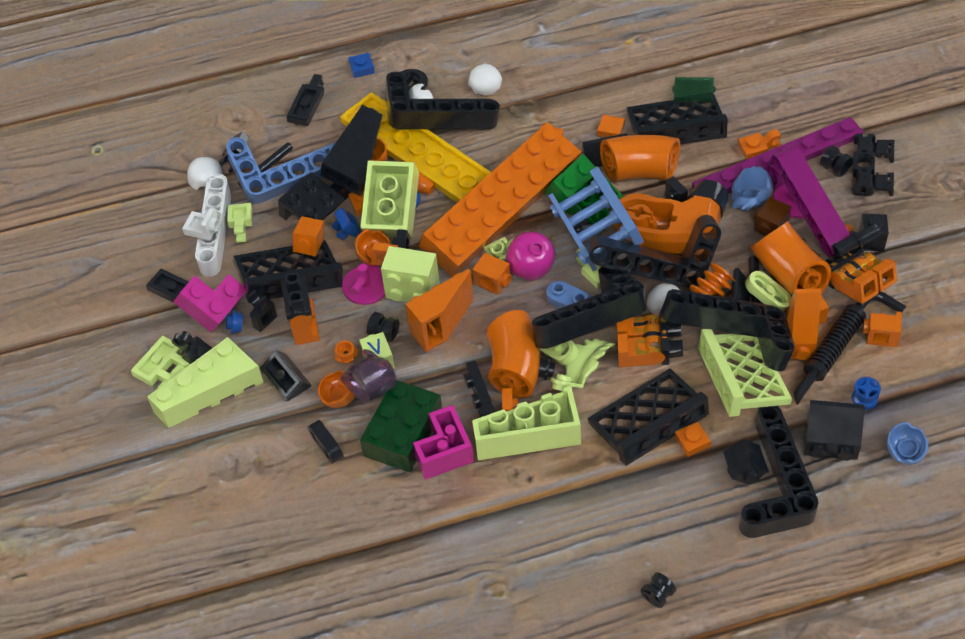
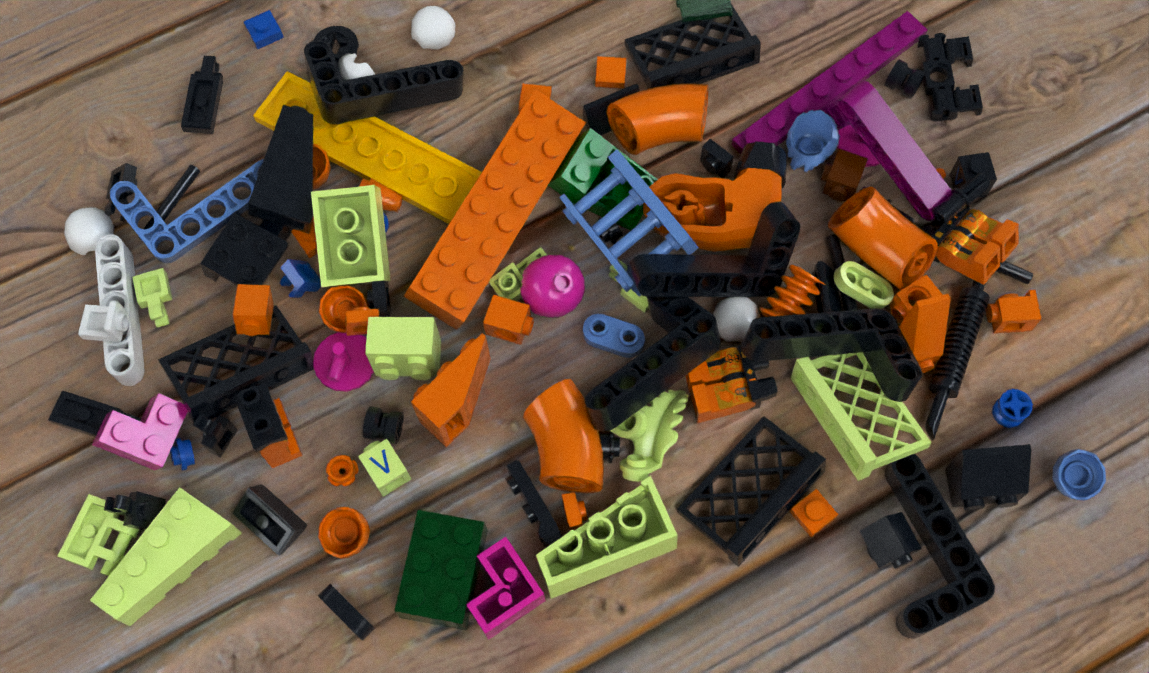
camera: 15 degrees left, 15 degrees up
(374, 373) = (391, 520): clear purple helmet -> none
(756, 144) = (799, 71): orange plate -> none

